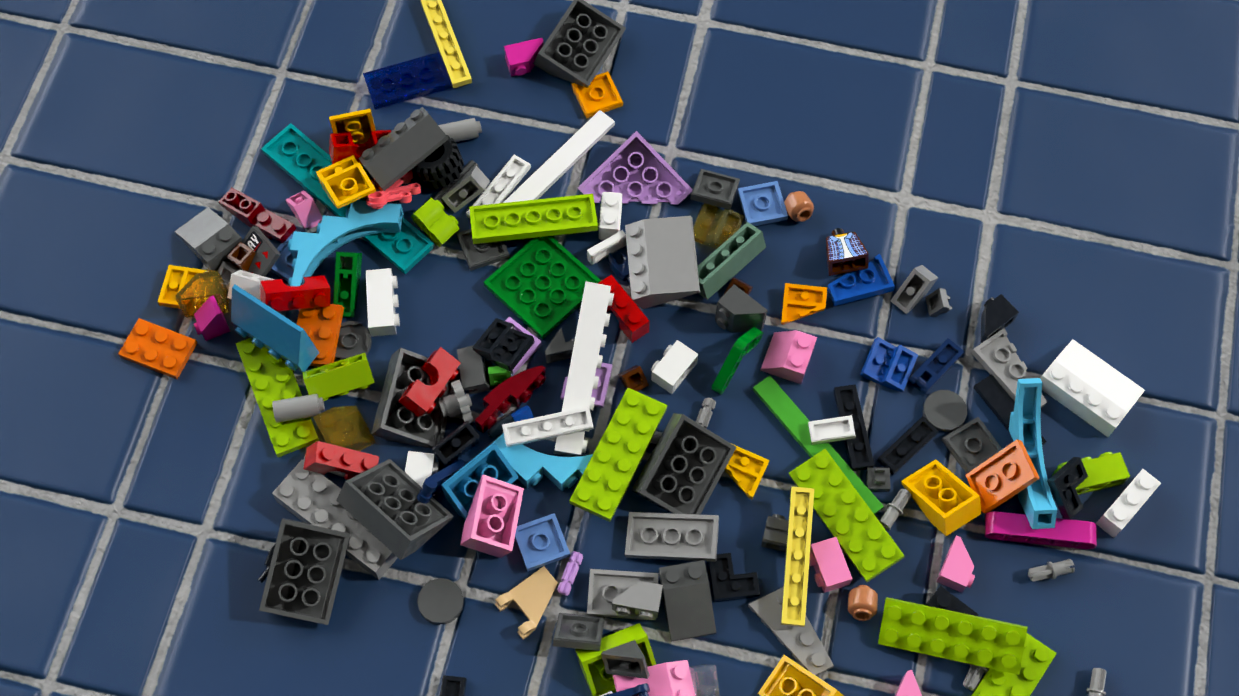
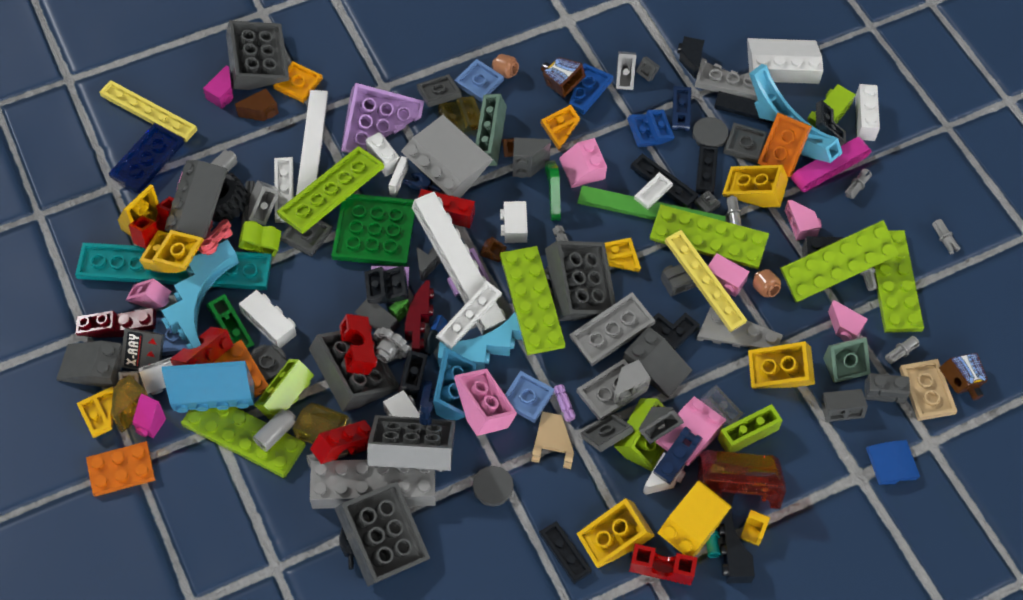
camera: 40 degrees left, 5 degrees down
(241, 256) = (132, 358): reddish brown slope -> none
(540, 95) = (257, 106): none -> reddish brown slope

